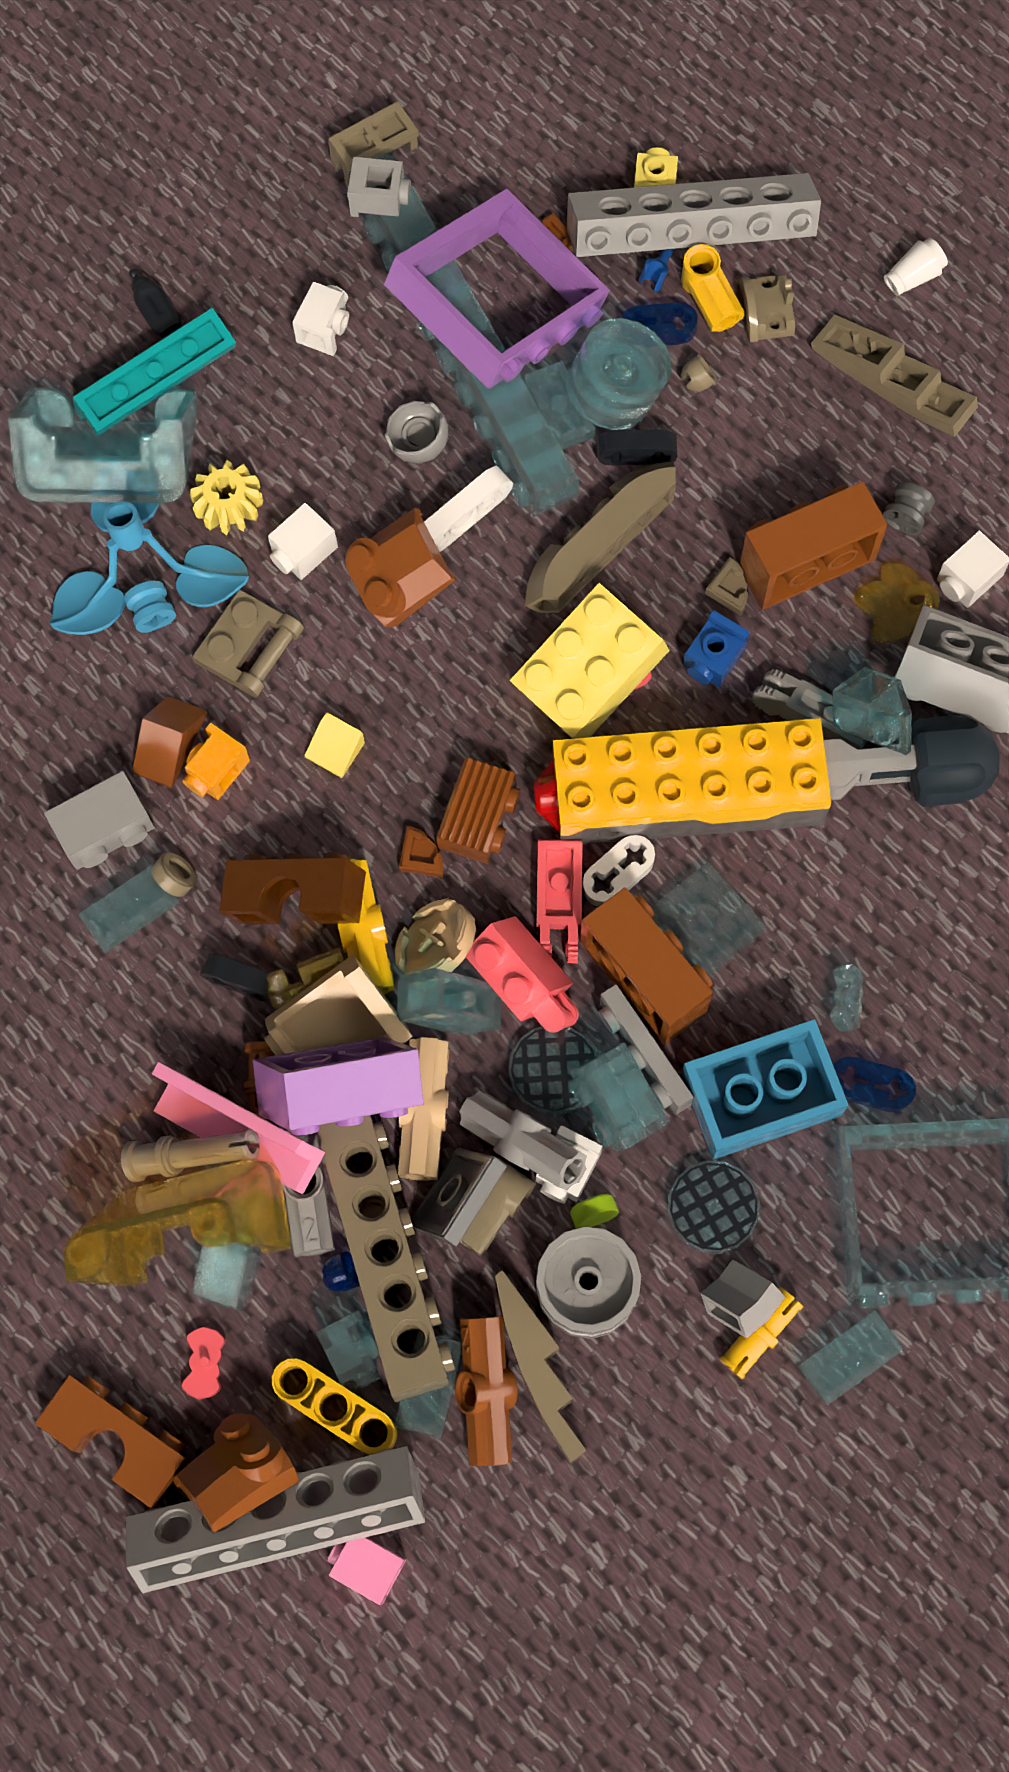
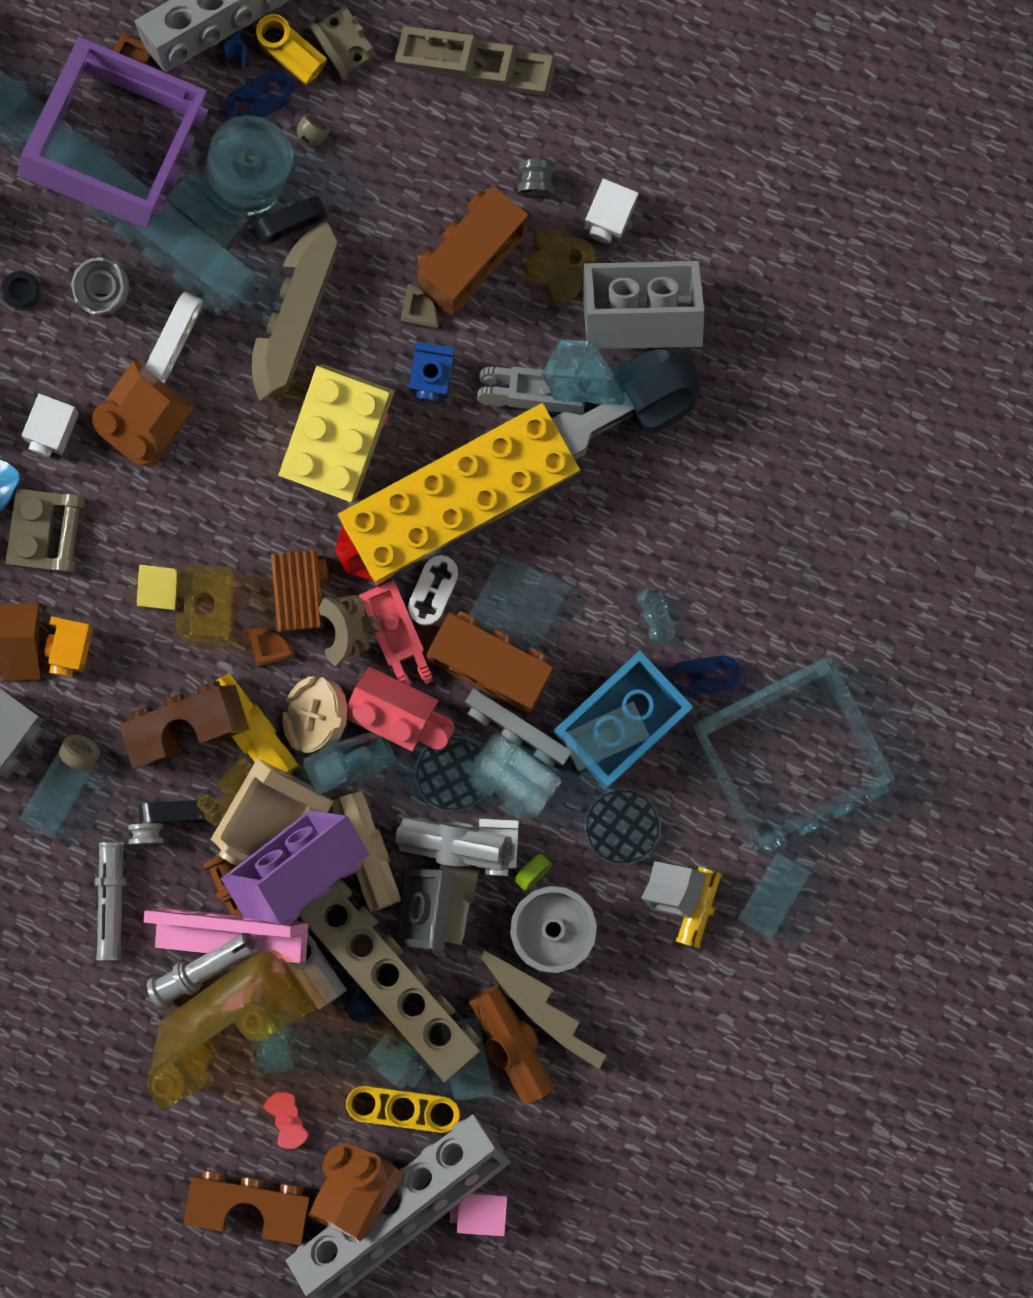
camera: 30 degrees left, 10 degrees up
(126, 1049) = (109, 900): none -> light grey pin
(201, 988) = (145, 834): none -> light grey bush
(337, 407) = (20, 290): none -> black tile
(375, 808) = (216, 627): none -> clear yellow brick
(513, 866) = (350, 627): none -> dark tan piece
(738, 1092) = (605, 736): none -> clear light blue plate

